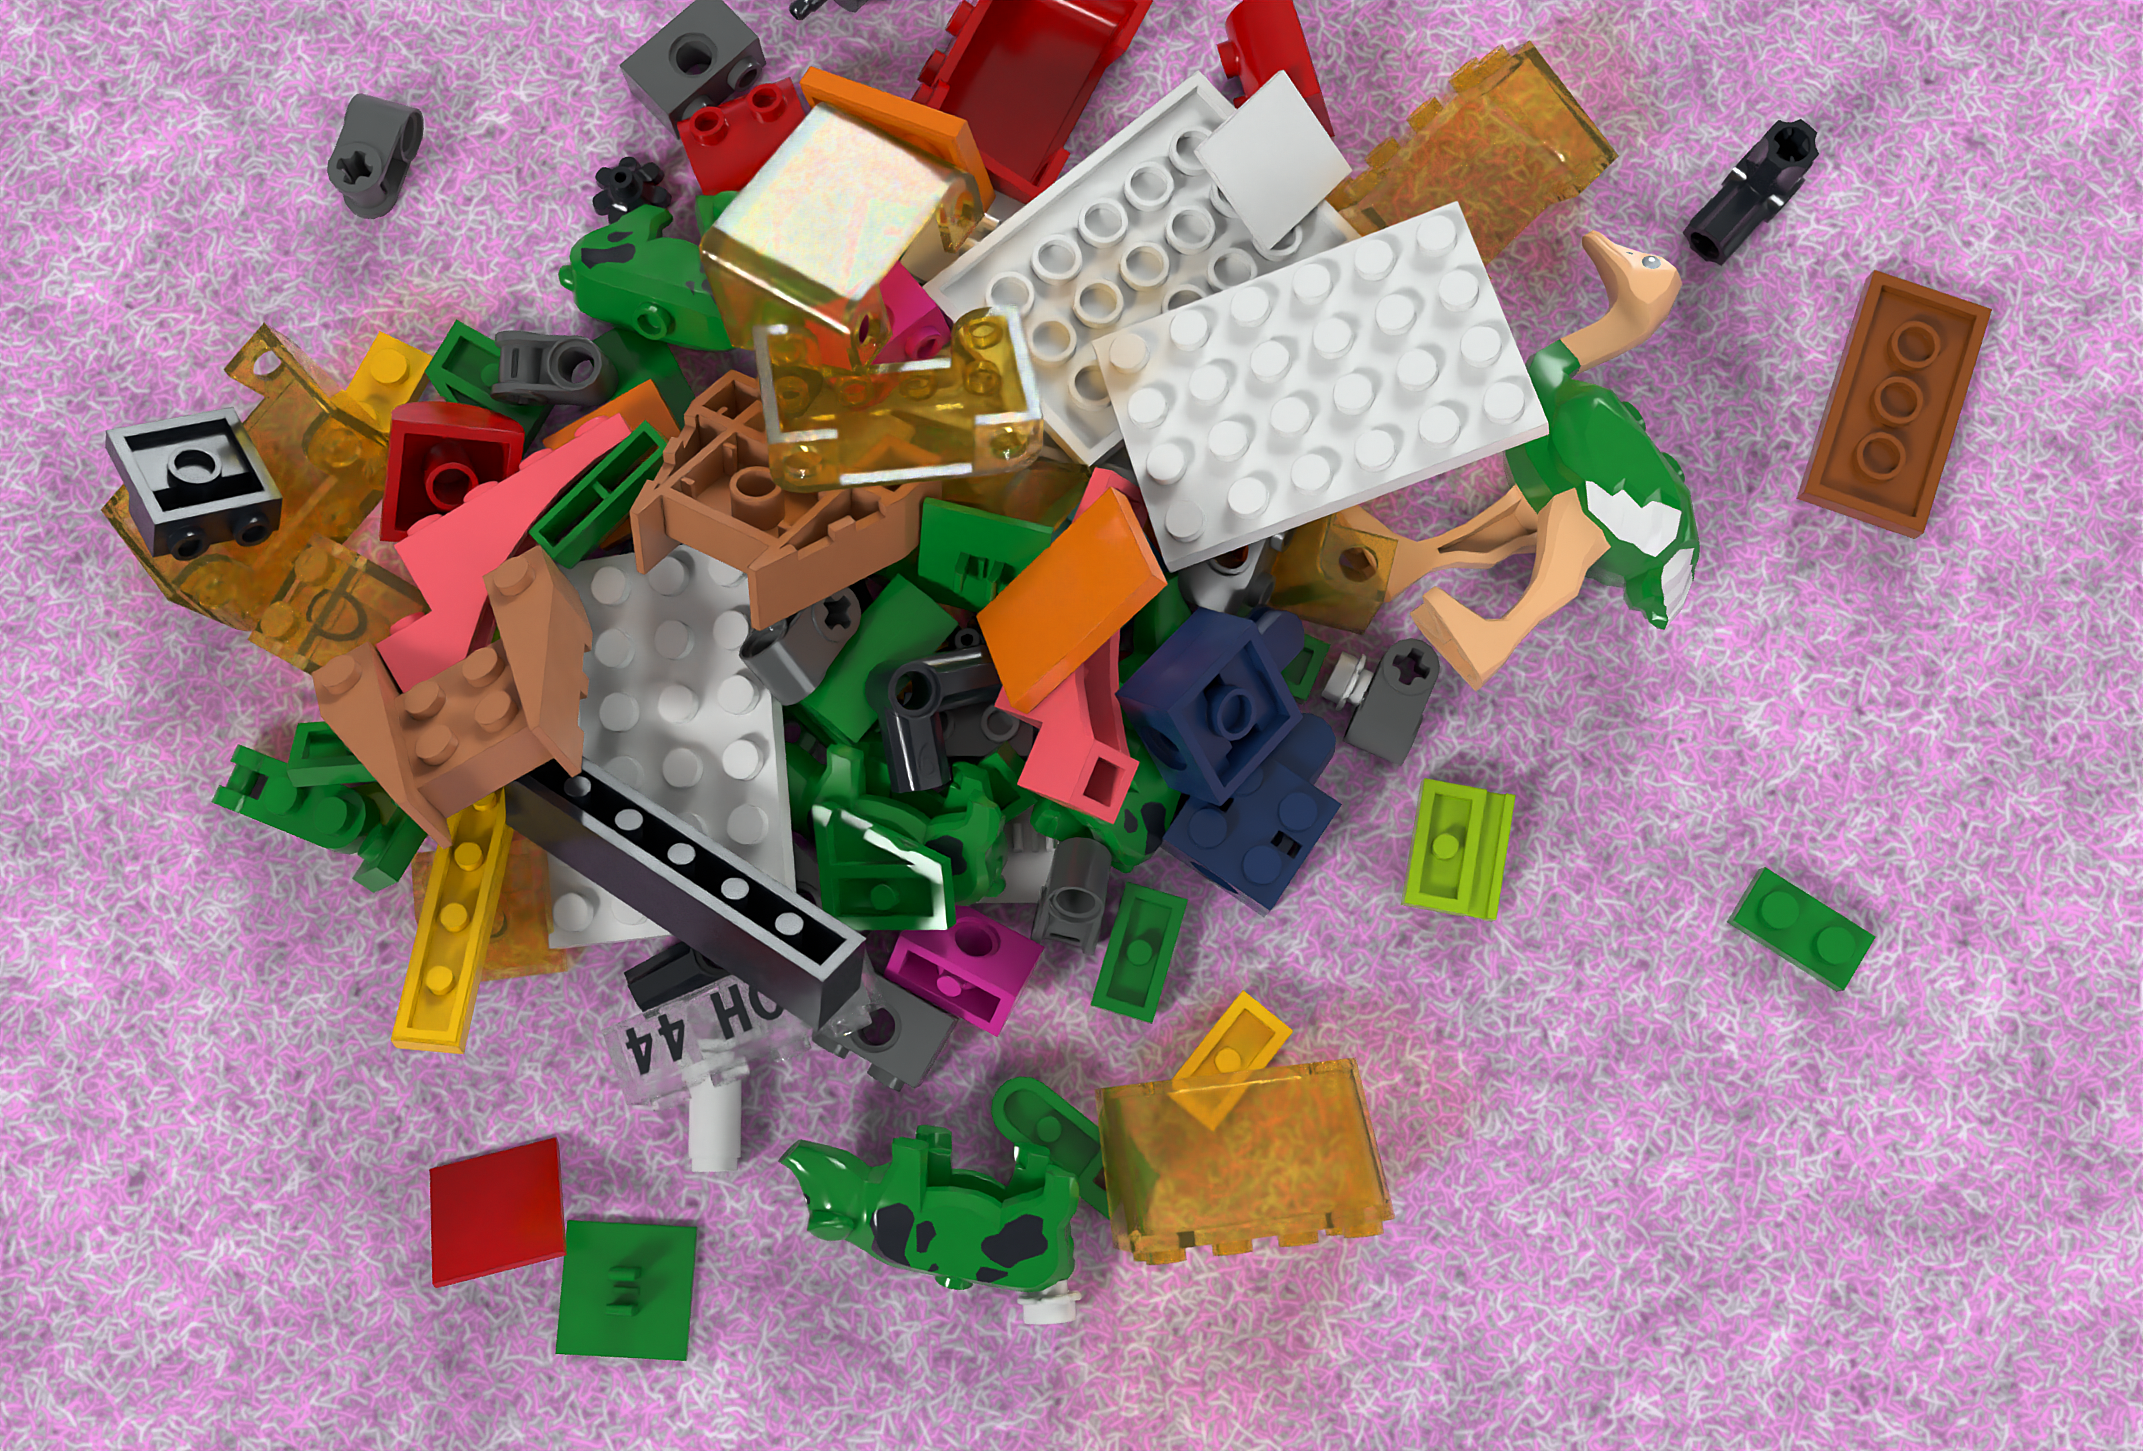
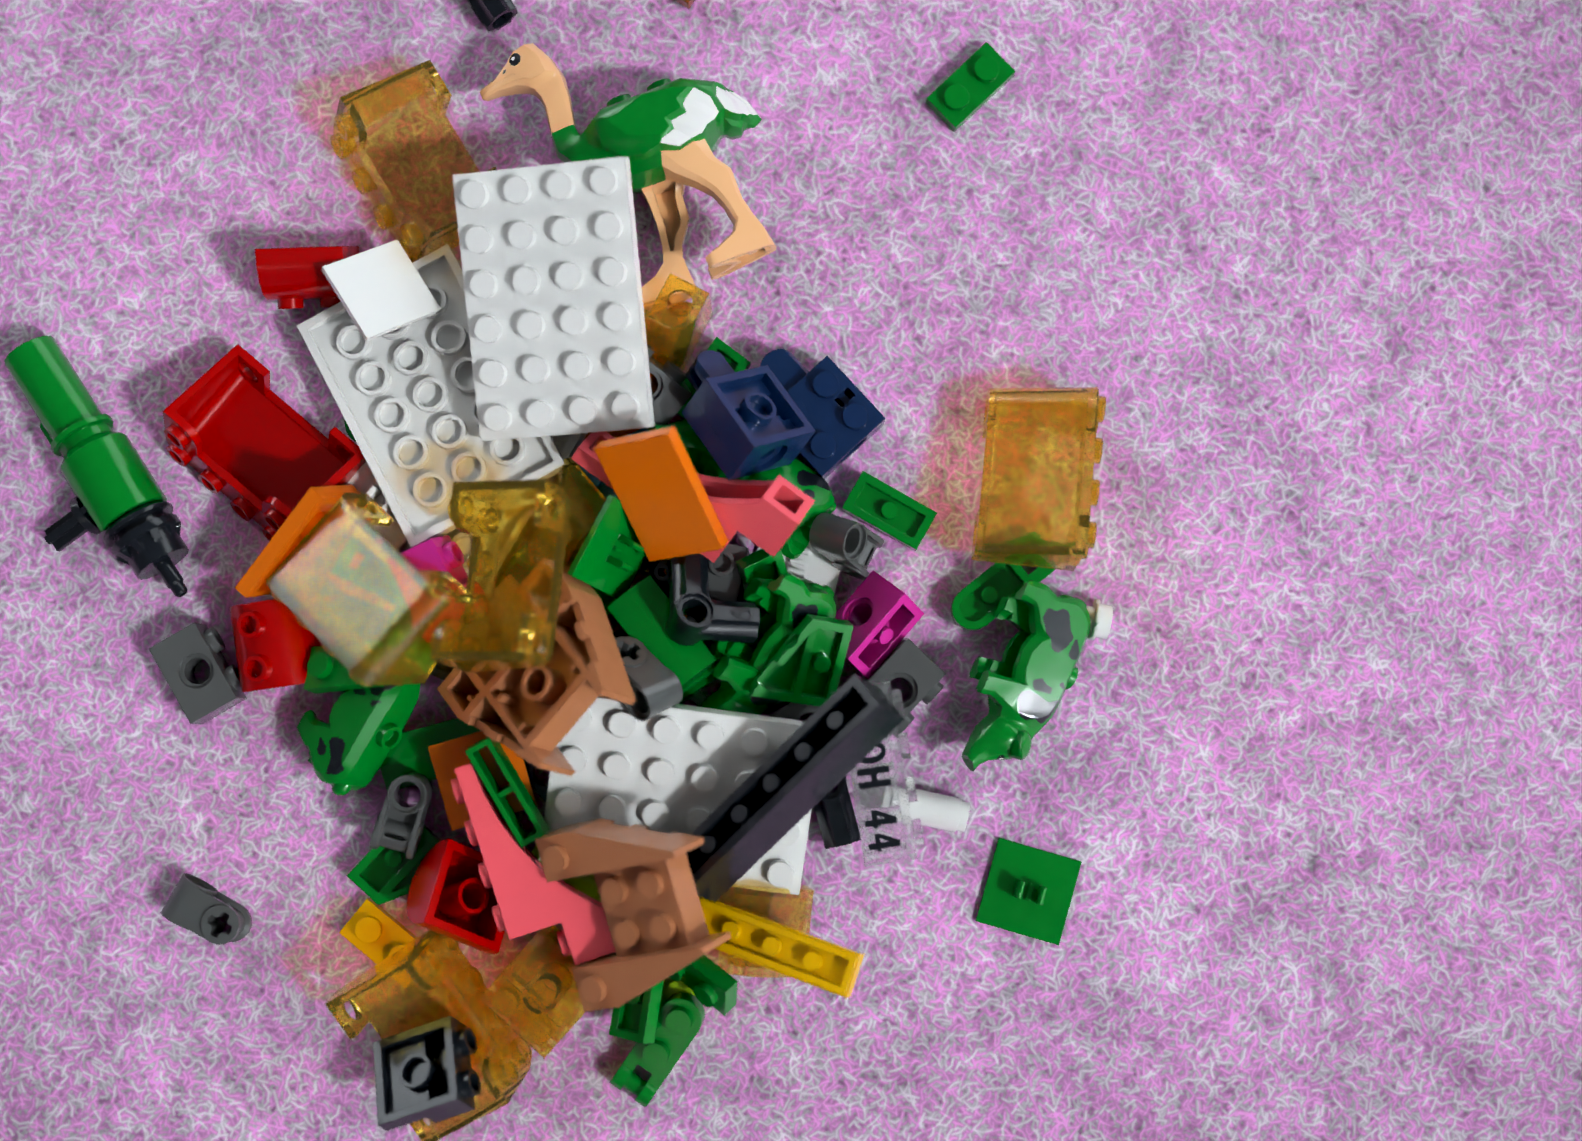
camera: 80 degrees left, 5 degrees up
(496, 1212) = (962, 963): red piece -> none
(629, 188) = (286, 737): black plant -> none
(1239, 1041) = (962, 463): yellow plate -> none
(1347, 681) = (742, 332): white plate -> none
(1390, 710) = (771, 309): dark grey piece -> none
(1458, 850) = (870, 289): lime plate -> none

